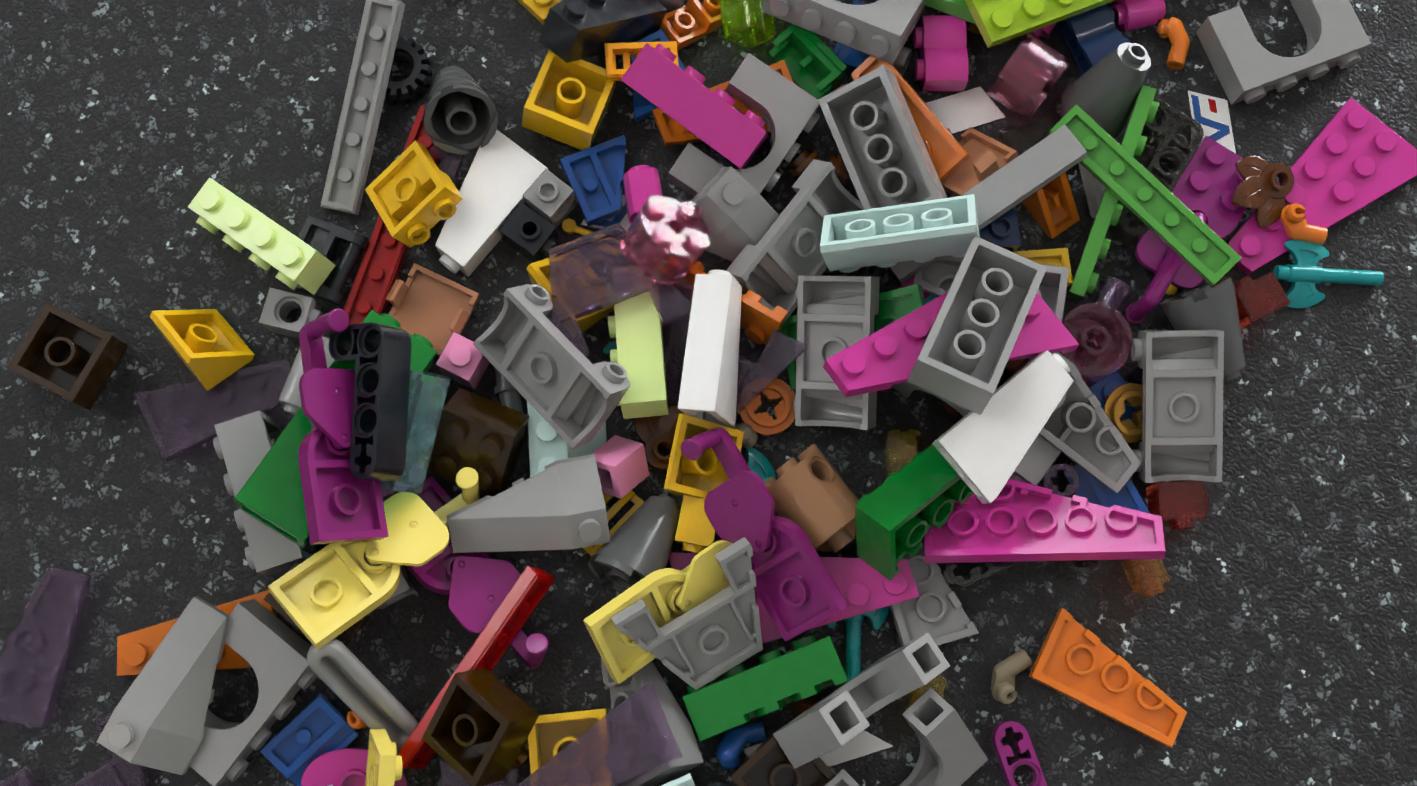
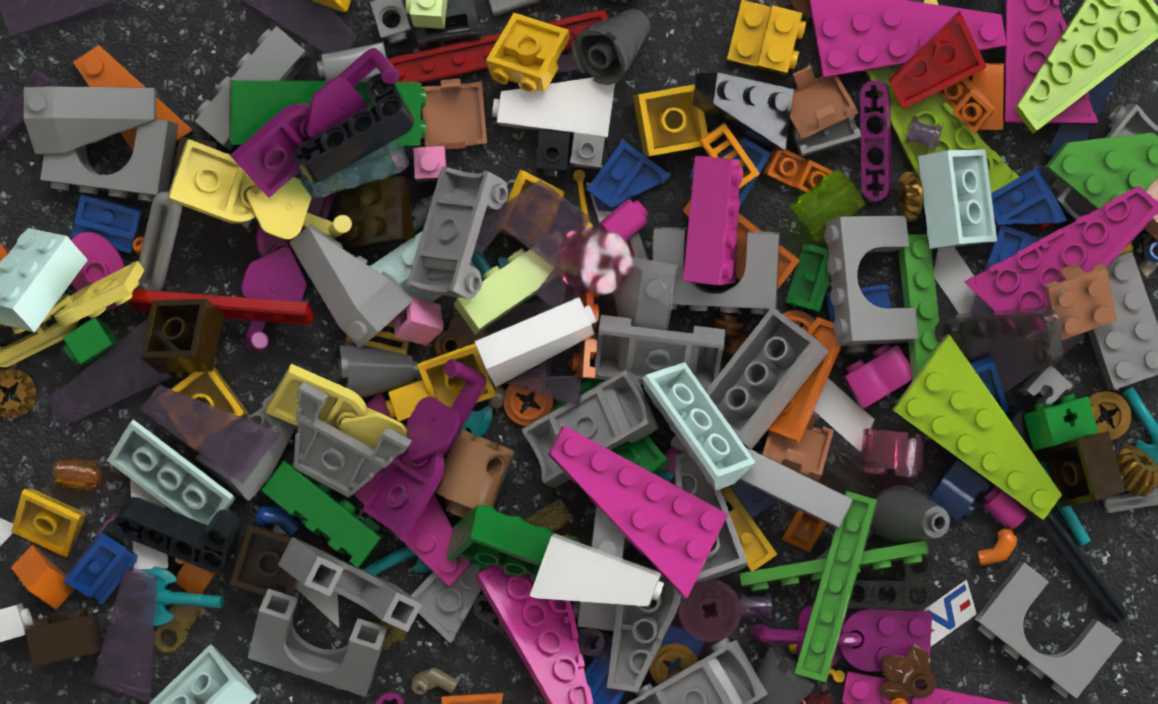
camera: 60 degrees right, 10 degrees up
(977, 325) = (648, 517): light grey brick -> none

